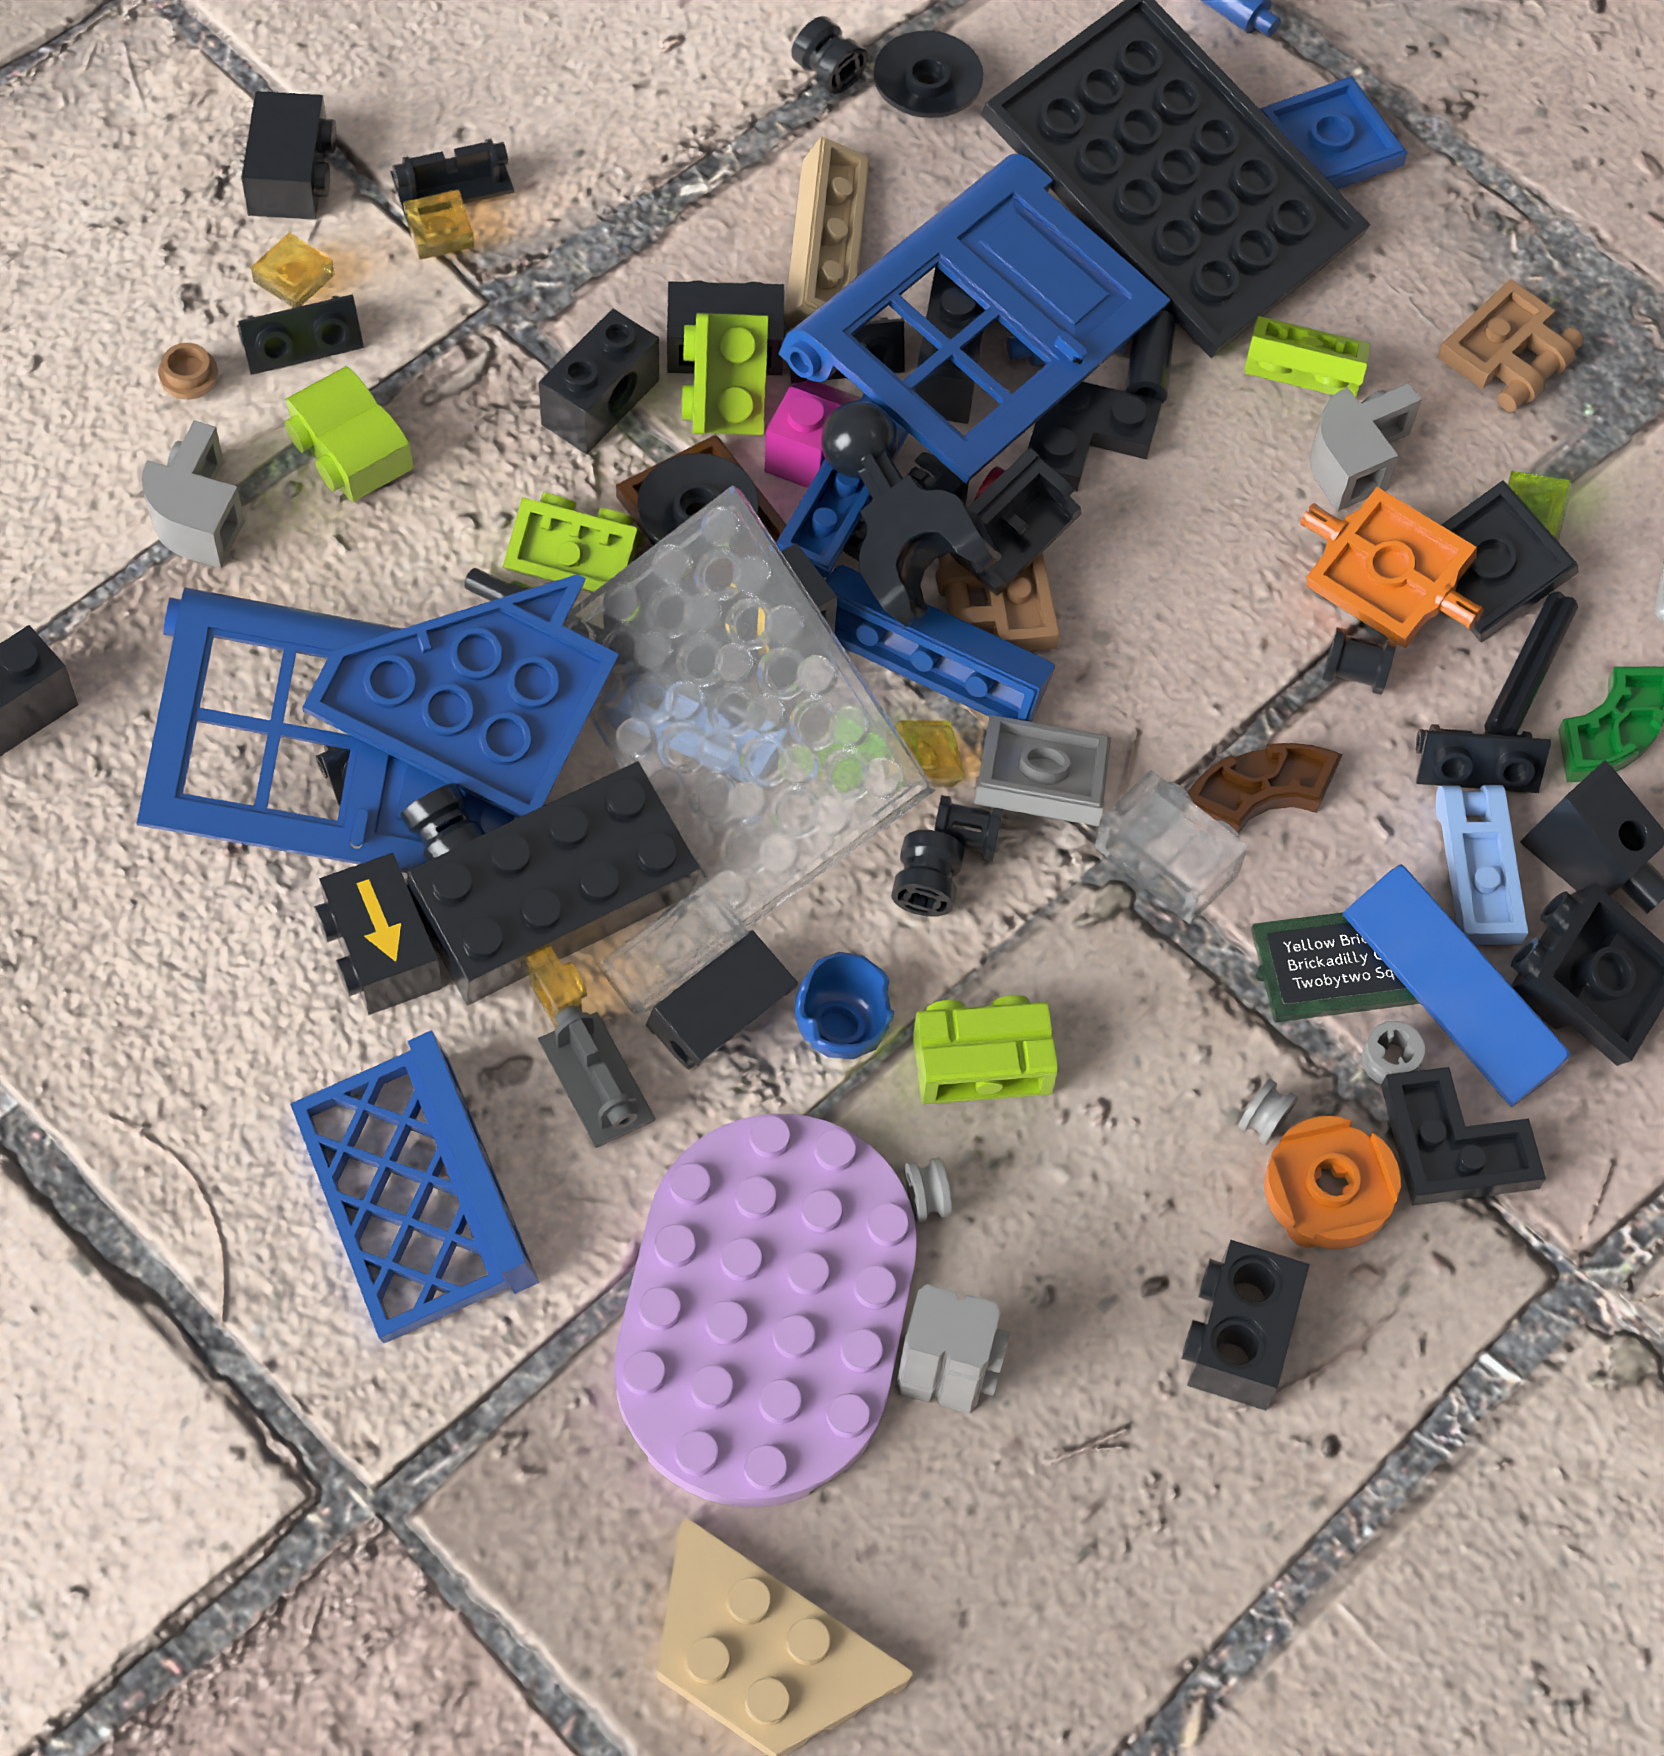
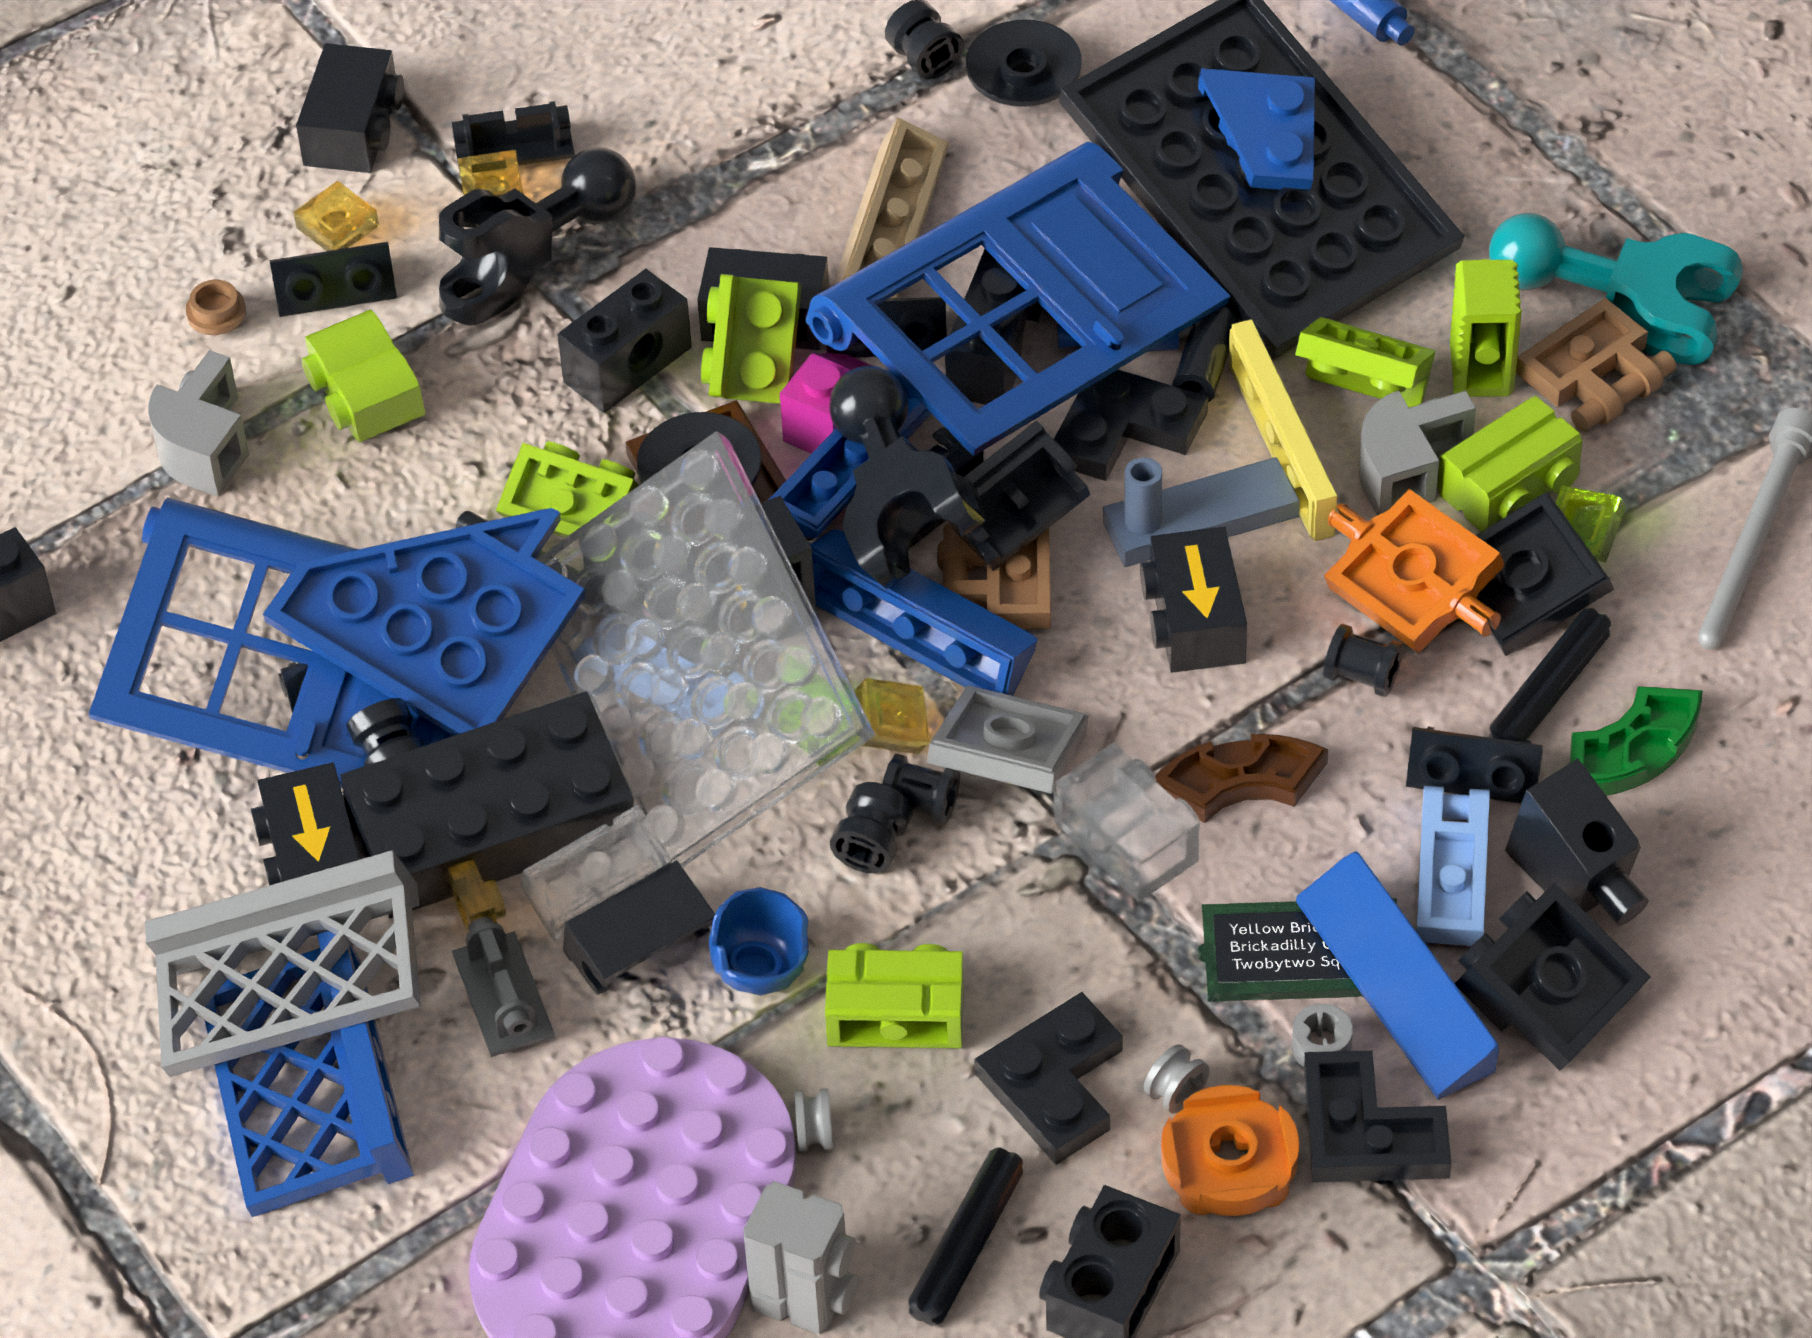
camera: 15 degrees right, 10 degrees down
(371, 1024) = (281, 921): none -> light grey fence
(475, 278) = (513, 234): none -> black piece
(1095, 1298) = (965, 1236): none -> black axle
(1131, 1120) = (1039, 1075): none -> black plate
(1158, 523) = (1231, 499): none -> sand blue piece
(1181, 126) = (1266, 123): none -> blue wing
(1192, 610) = (1196, 600): none -> black brick
(1240, 431) = (1281, 428): none -> light yellow tile
(1339, 132) = (1449, 144): blue plate -> none
(1414, 317) = (1485, 327): none -> lime brick
(1456, 452) = (1510, 463): none -> lime brick
(1543, 259) = (1645, 282): none -> teal piece

